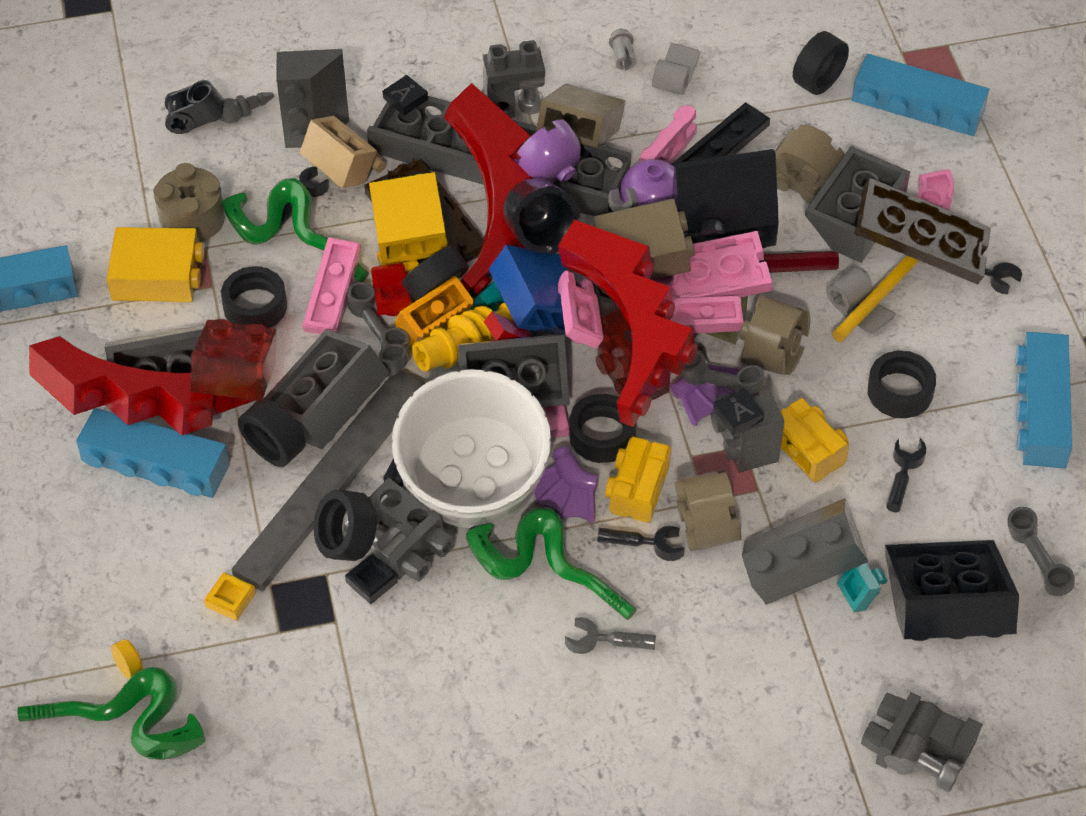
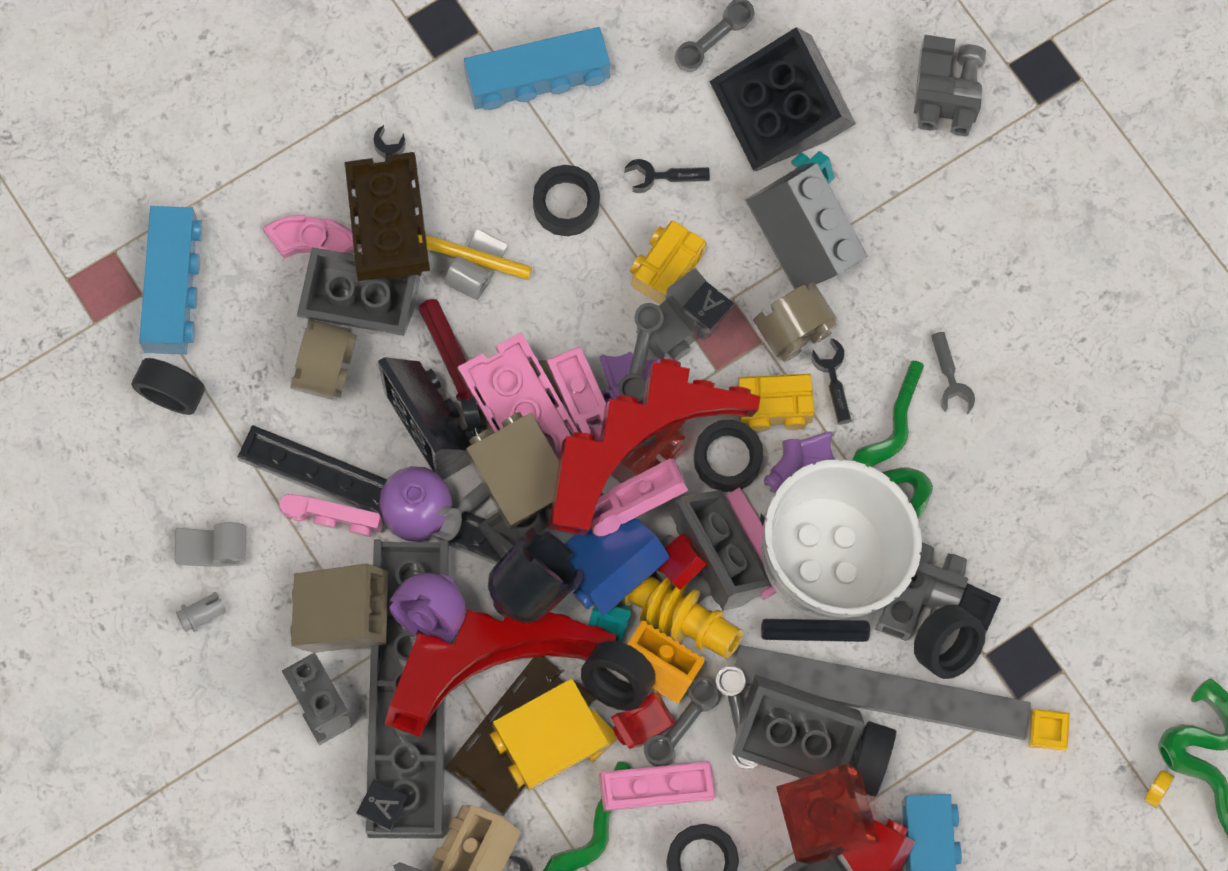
camera: 115 degrees left, 20 degrees up
(774, 336) = (566, 322): dark tan brick -> none

